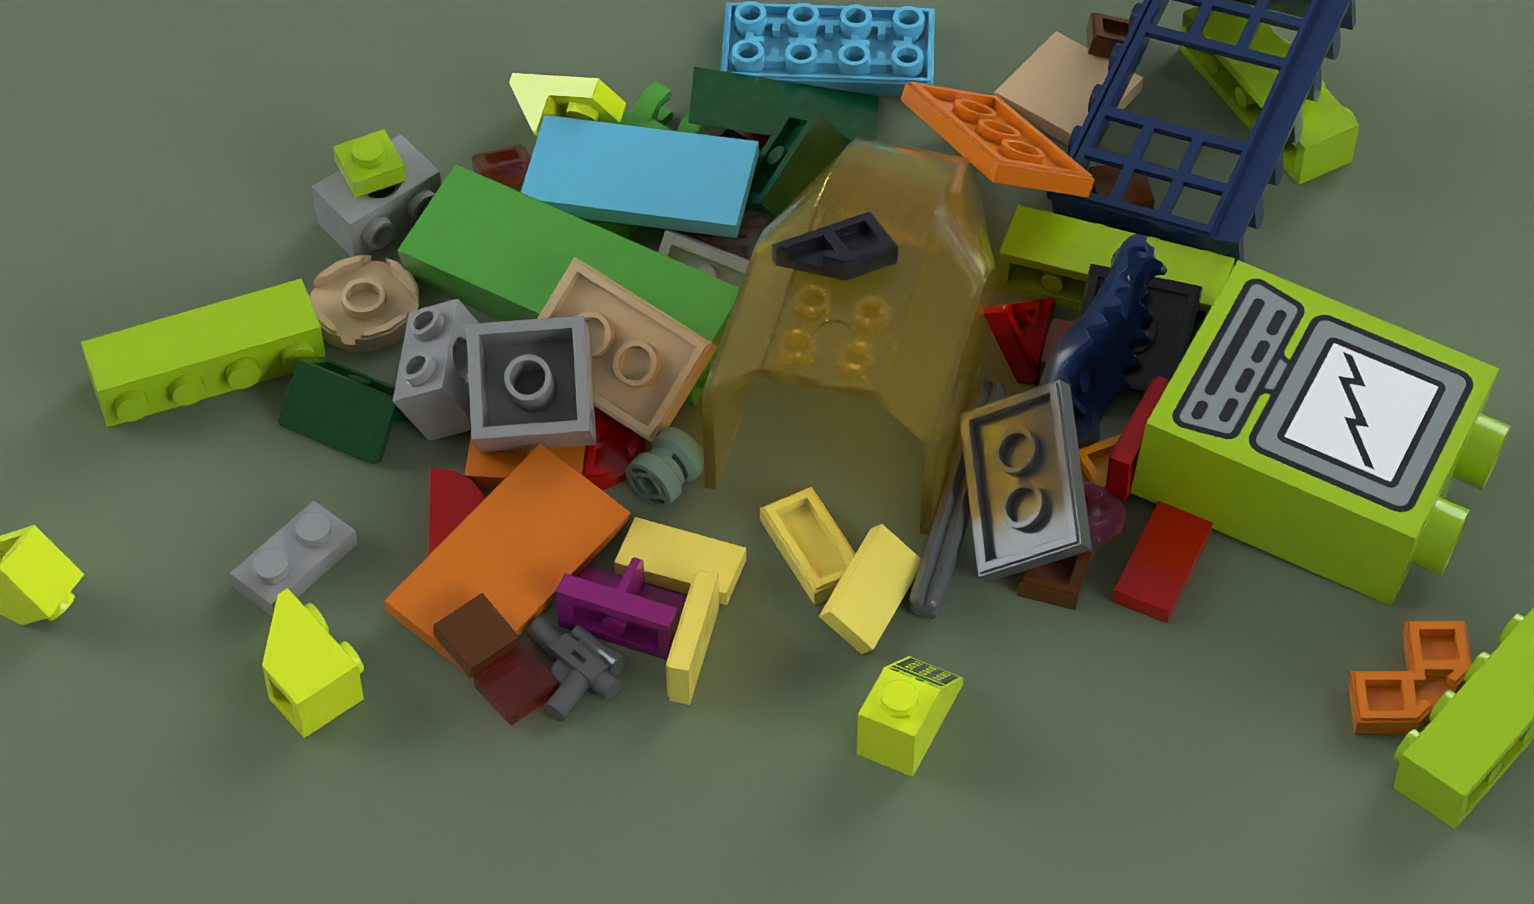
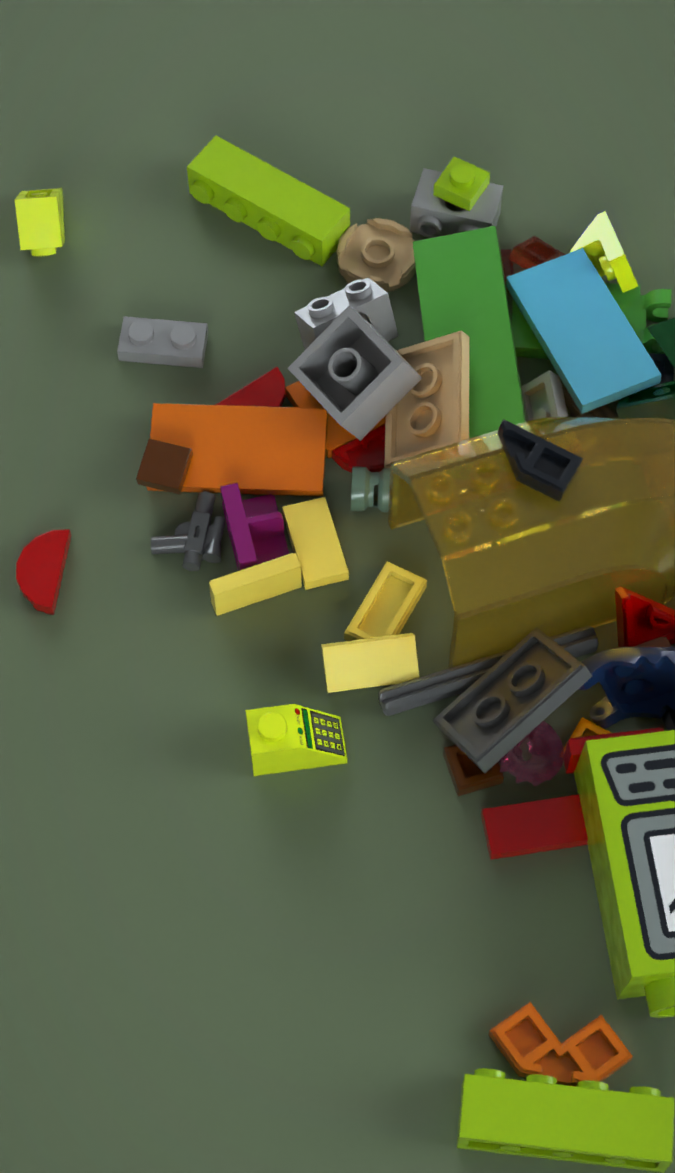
camera: 55 degrees right, 10 degrees up
(306, 668) = (82, 395): neon yellow slope -> none
(340, 408) = (284, 286): dark green panel -> none
(496, 835) = (42, 568): none -> red tile
(516, 684) = (157, 512): clear red tile -> none

